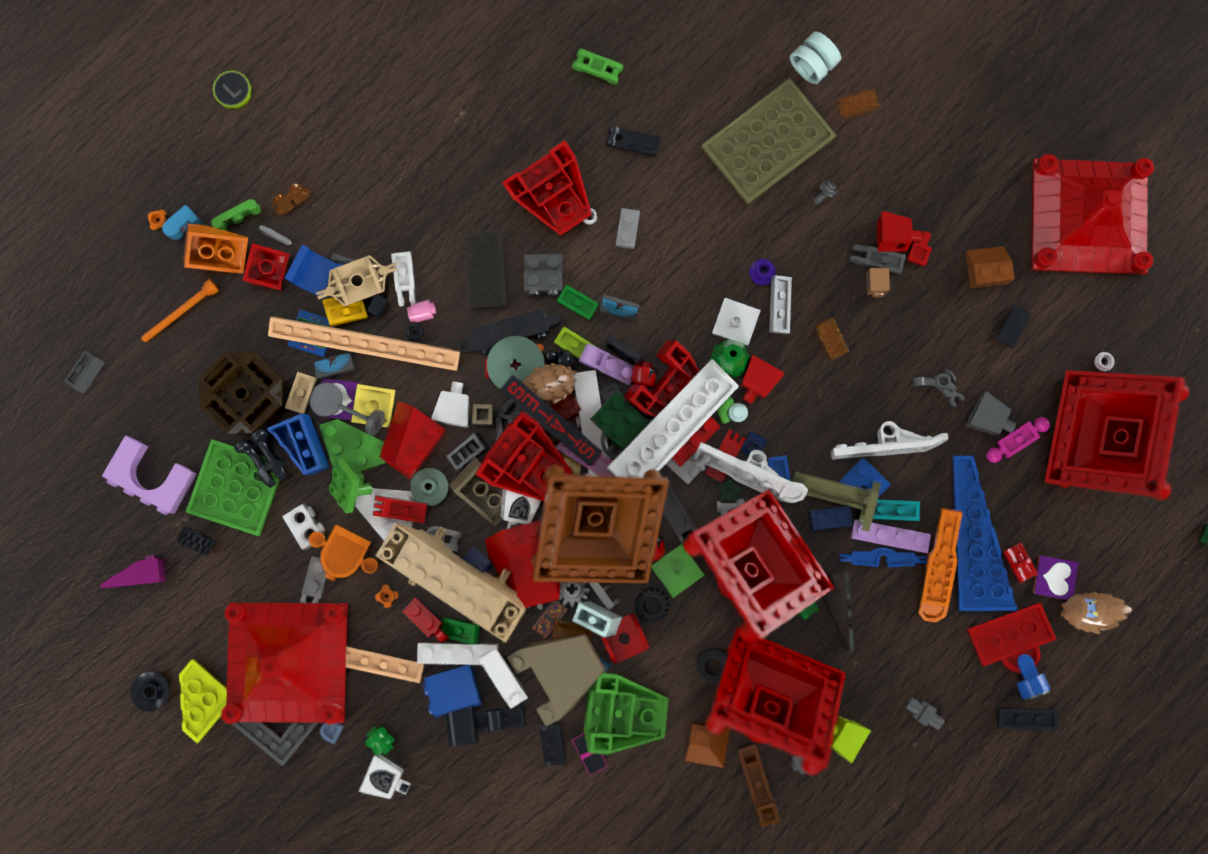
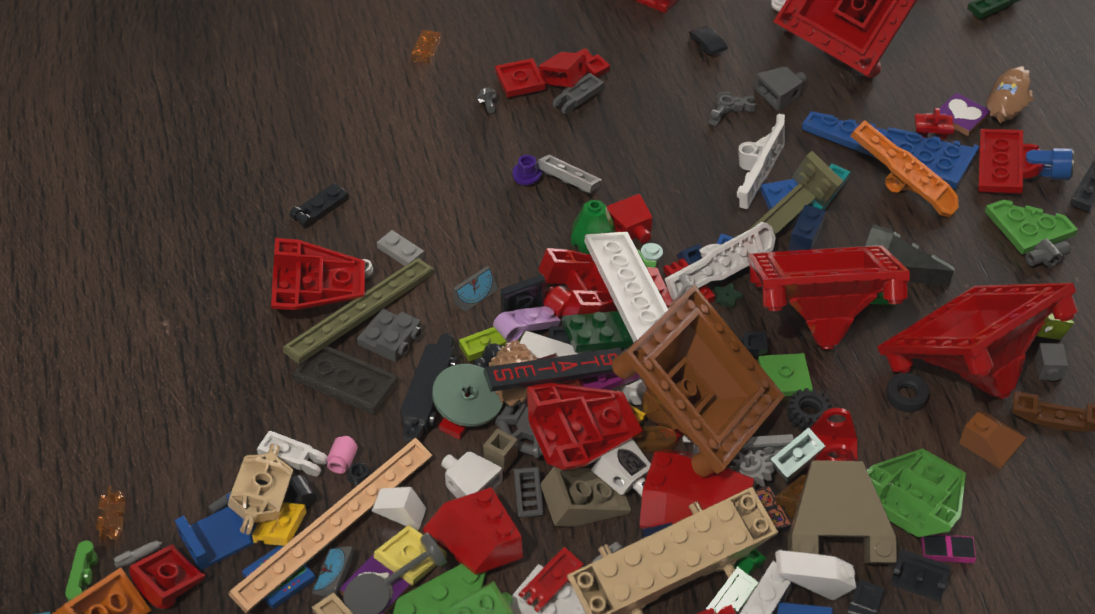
camera: 60 degrees left, 35 degrees down
(401, 377) = (400, 506): none -> white slope
(436, 493) = (538, 552): sand green piece -> none
(549, 240) = (357, 311): none -> olive tile
(577, 302) = (443, 319): green plate -> none
(597, 66) = (222, 195): bright green plate -> none
(725, 507) = (749, 293): light grey piece -> none
(736, 321) = (557, 213): white plate -> none
(768, 141) = (407, 114): olive plate -> none
(815, 57) = (362, 44): light aqua wheel -> none
(831, 338) = (630, 152): clear orange plate -> none
(866, 201) = (520, 77): none -> red plate
(872, 558) = (865, 221): blue piece -> none
(878, 281) = (600, 101): medium nougat brick -> none
(892, 537) = (852, 202): lavender plate -> none
(948, 686) = (1029, 225): none -> bright green plate
(989, 267) = (644, 30): dark orange slope -> none
(1018, 439) = (815, 80): dark pink plate -> none

